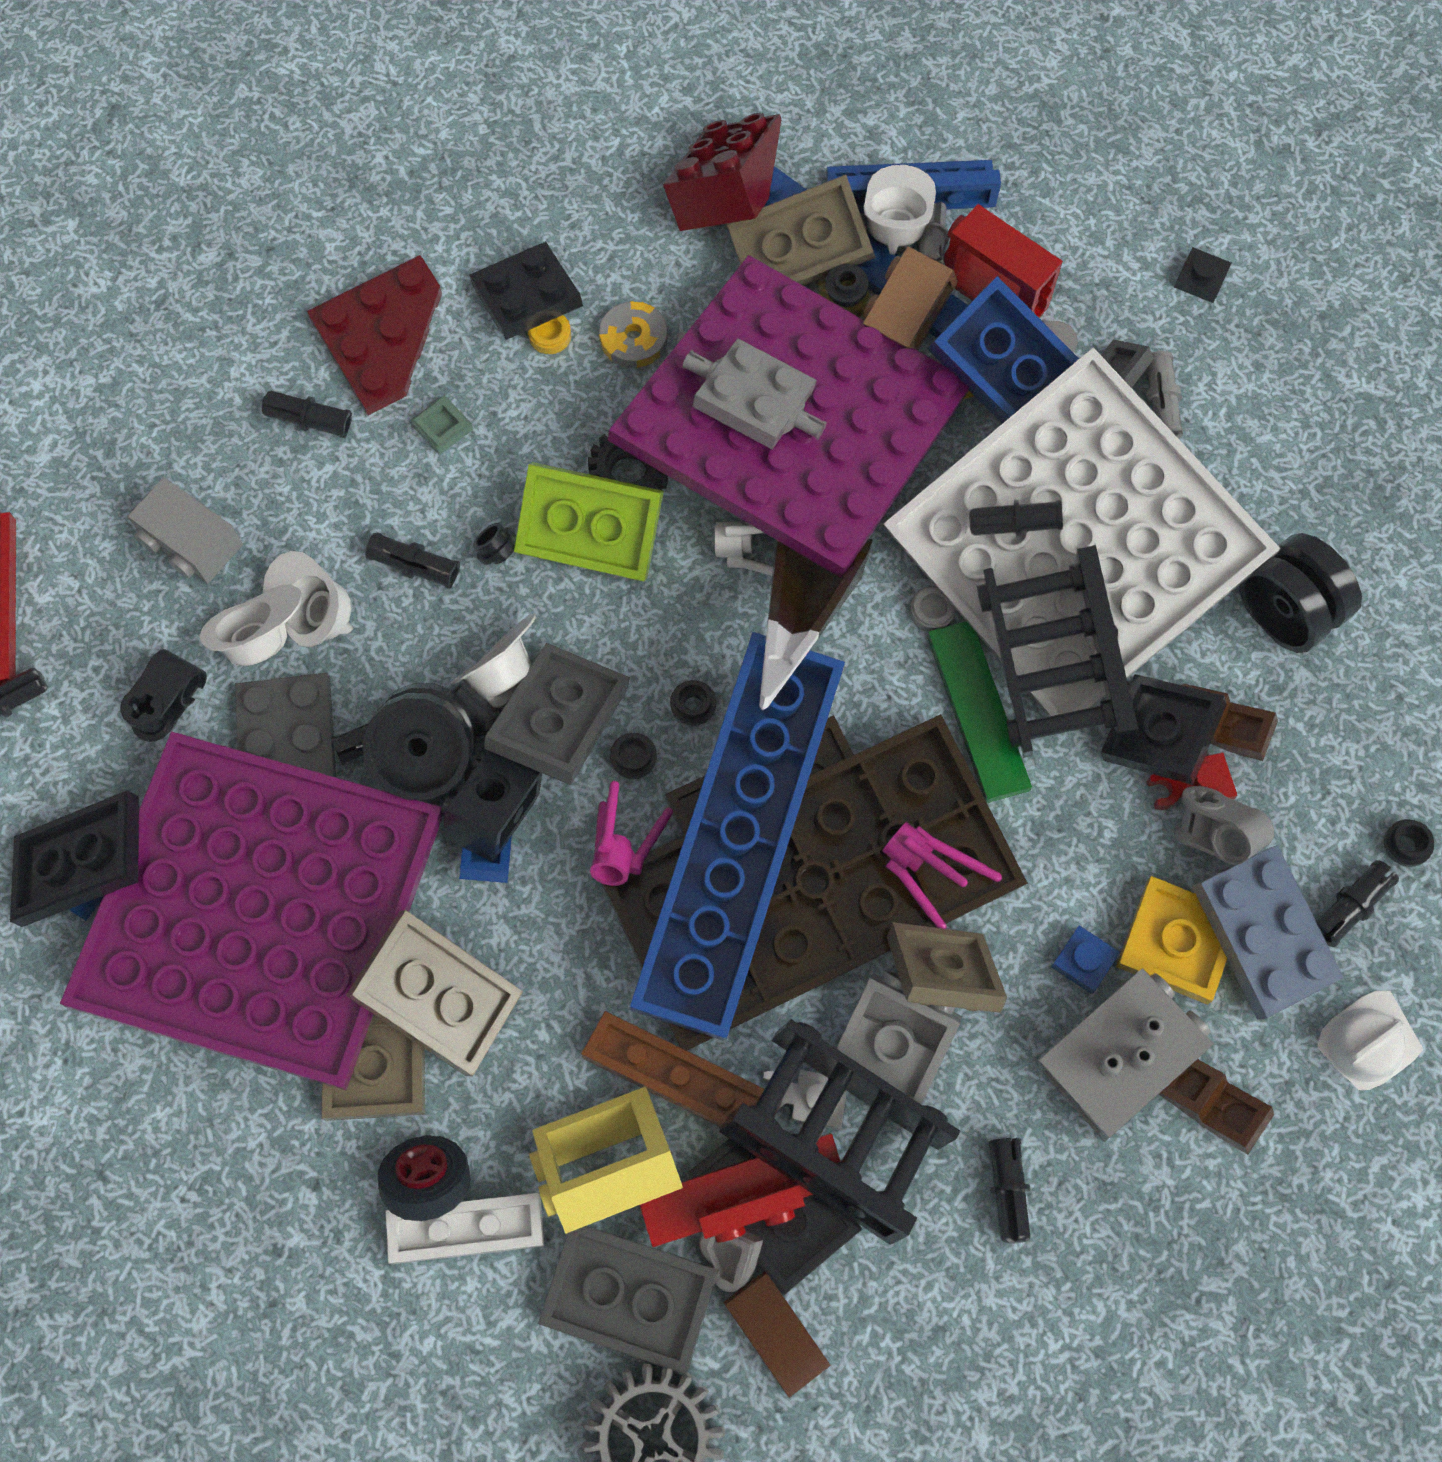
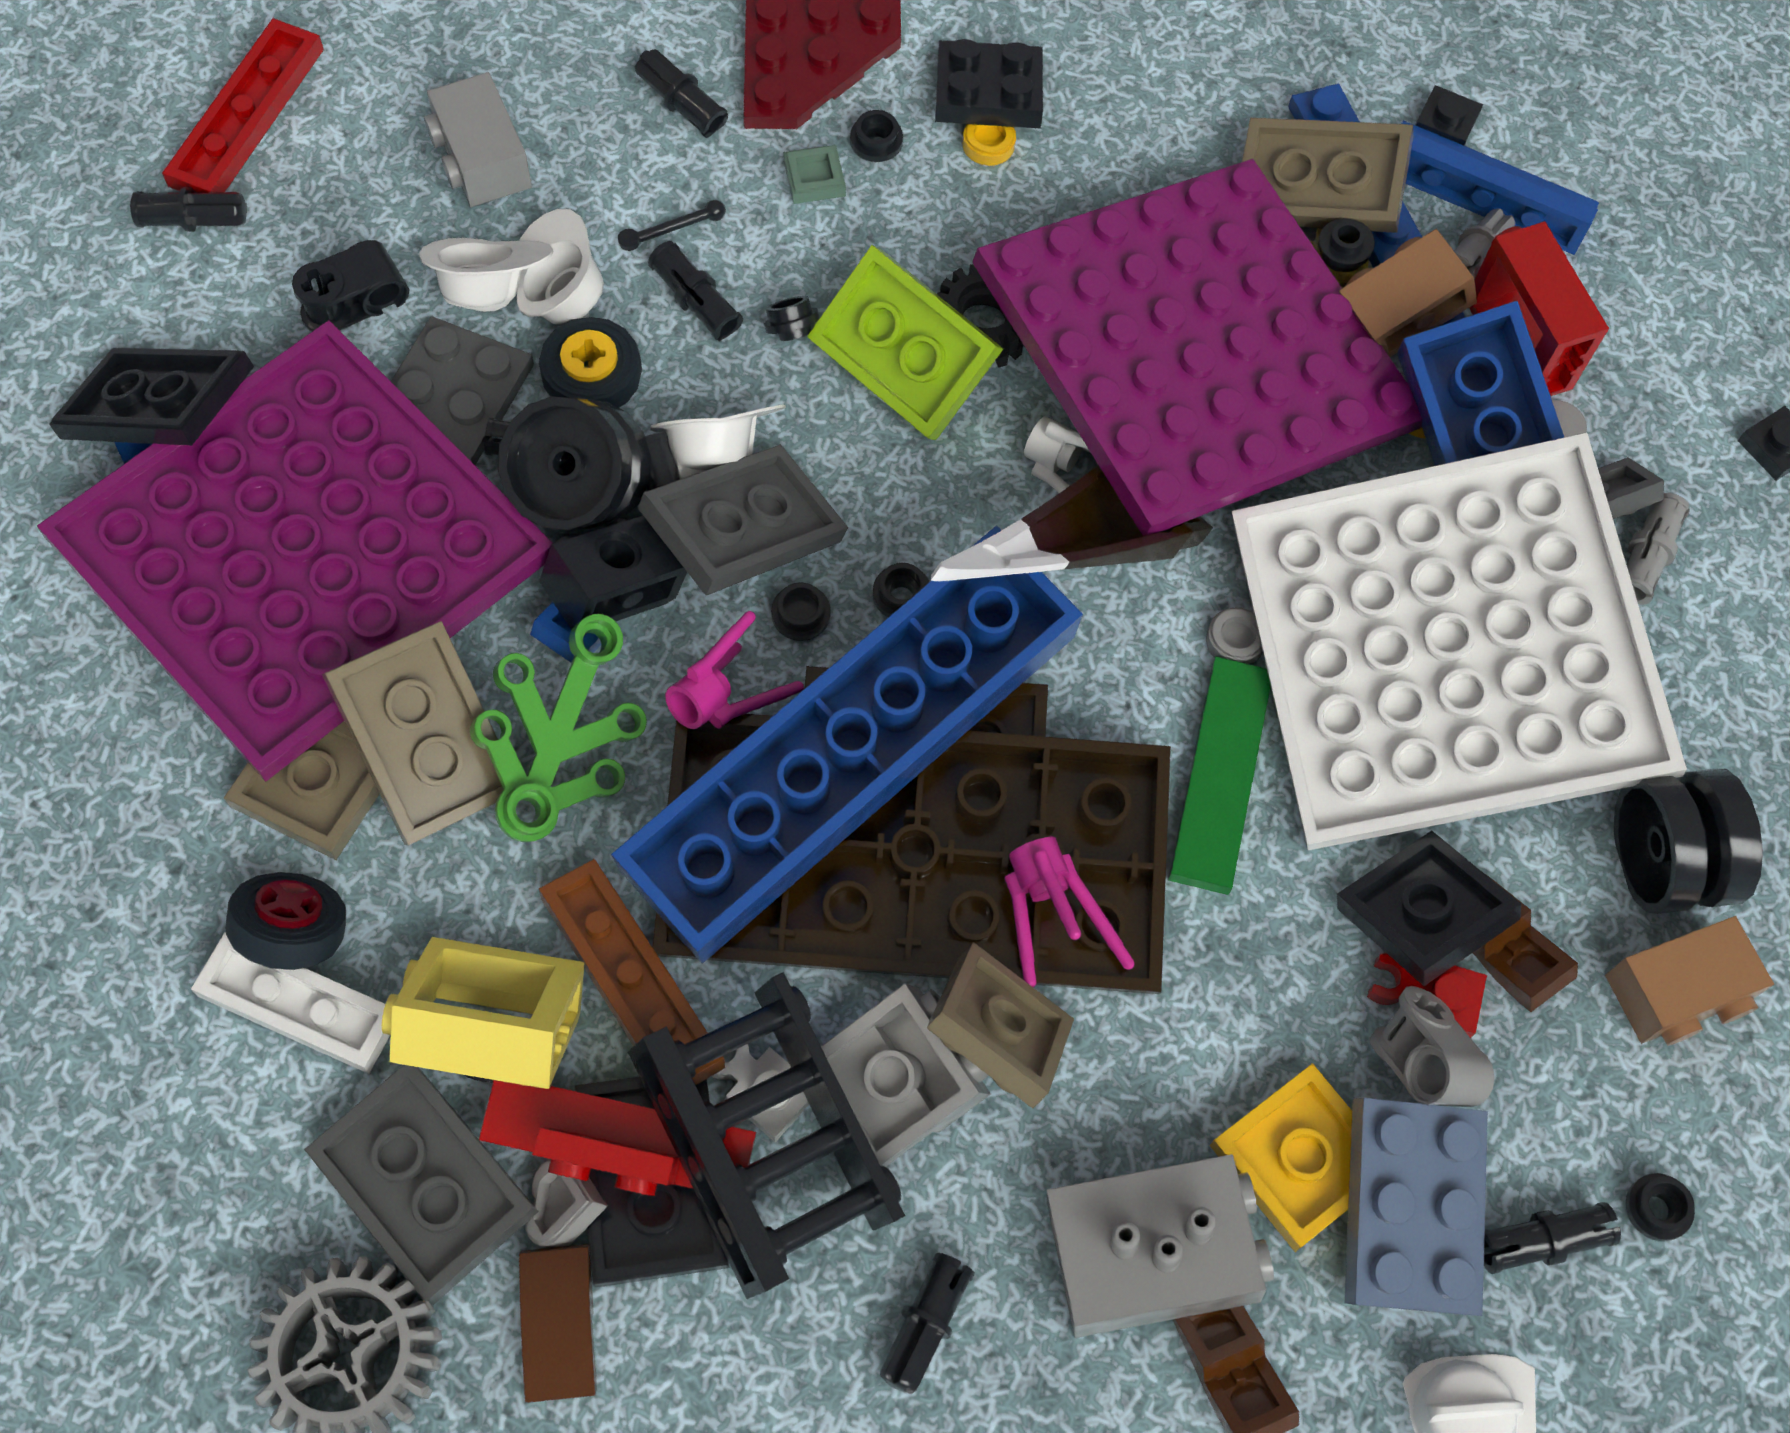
camera: 25 degrees right, 5 degrees down
(339, 545) = (630, 239): none -> black hinge
(383, 671) = (611, 356): none -> black wheel
(466, 362) = (876, 124): none -> black plate
(526, 942) = (554, 736): none -> bright green plant
(633, 351) = (1077, 166): piece -> none
(725, 173) = (1279, 67): dark red slope -> none
(754, 393) = (1163, 292): light grey plate -> none
(855, 146) = (1449, 115): none -> black plate
(899, 205) = (1456, 189): white piece -> none
(1016, 518) = (1386, 576): black axle -> none
(1085, 959) = (1178, 1116): blue plate -> none
(1093, 621) = (1390, 791): black fence -> none
(1348, 684) = (1690, 980): none -> medium nougat brick

